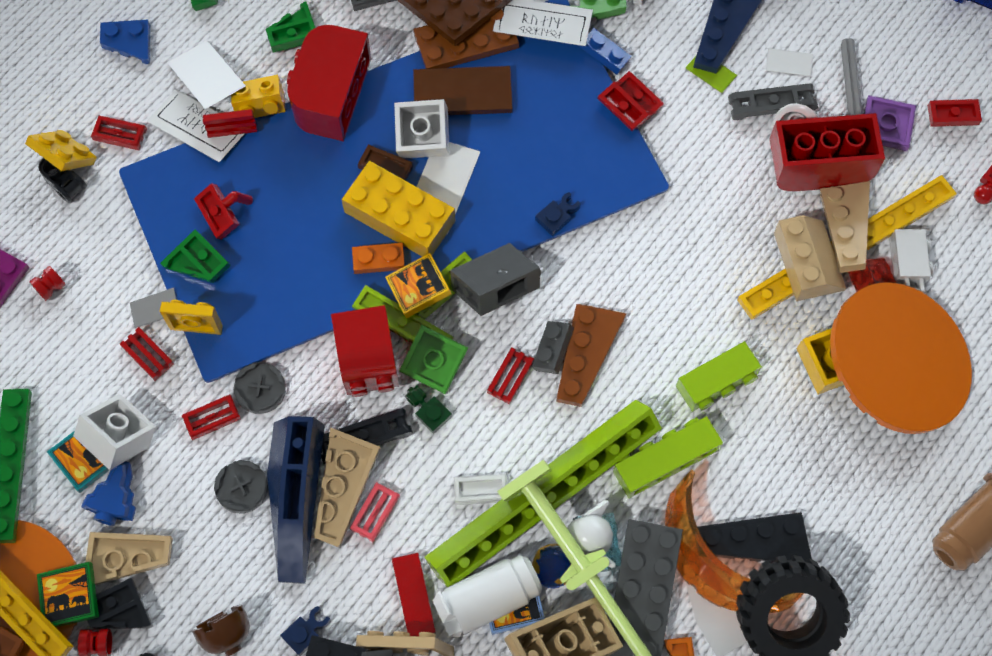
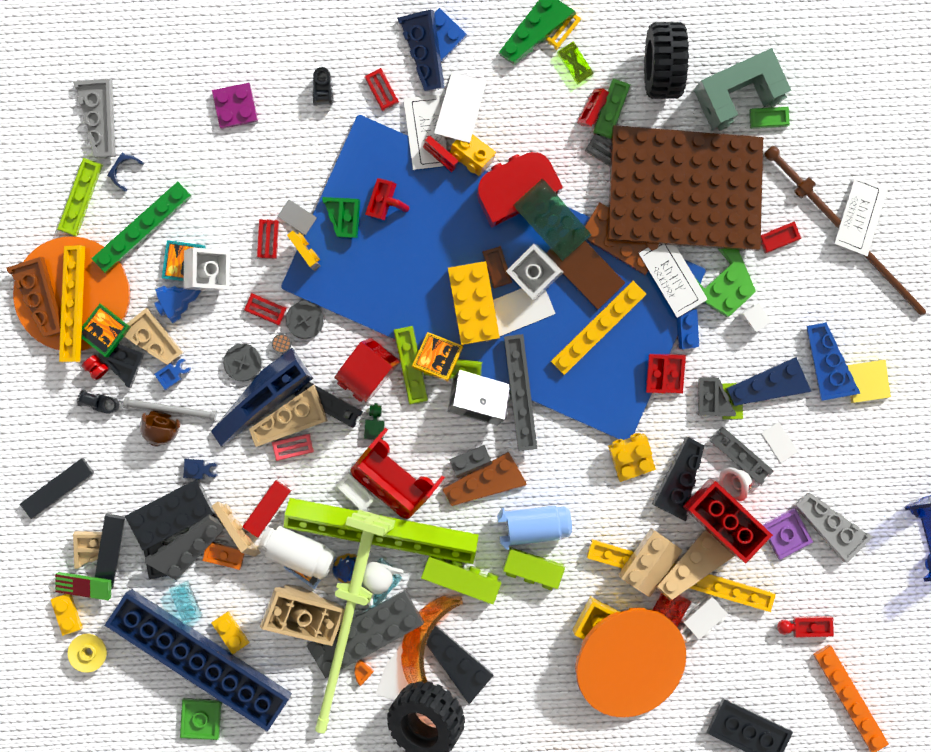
camera: 50 degrees right, 20 degrees up
(49, 281) = (256, 143): red wheel -> none
(61, 150) = (337, 71): yellow plate -> none
(114, 59) = (422, 38): none -> dark blue wing
(181, 571) = (170, 375): none -> blue plate
(213, 605) = (127, 402): none -> light grey bar
(260, 430) = (281, 343): none -> tile
(290, 29) = (537, 128): green wing -> none
(378, 258) = (436, 316): orange plate -> none
(387, 69) = (552, 219): none -> clear green plate
(433, 359) = (404, 402): bright green tile -> none
(504, 443) = (391, 481): none -> red windscreen
(520, 358) = (418, 455): red tile -> none
(528, 240) = (520, 392): none -> dark grey plate
(530, 125) = (598, 327): none -> yellow plate
(556, 216) = (550, 394): dark blue plate -> none
(674, 335) = (535, 525): none -> light blue piece
(685, 194) = (631, 456): none -> yellow plate
(693, 82) = (713, 398): none -> dark grey wing
(748, 172) = (680, 479): none -> black wing
(851, 77) = (800, 488): light grey axle -> none
(924, 77) = (839, 533): none -> light grey wing
(954, 112) = (827, 568): red plate -> none

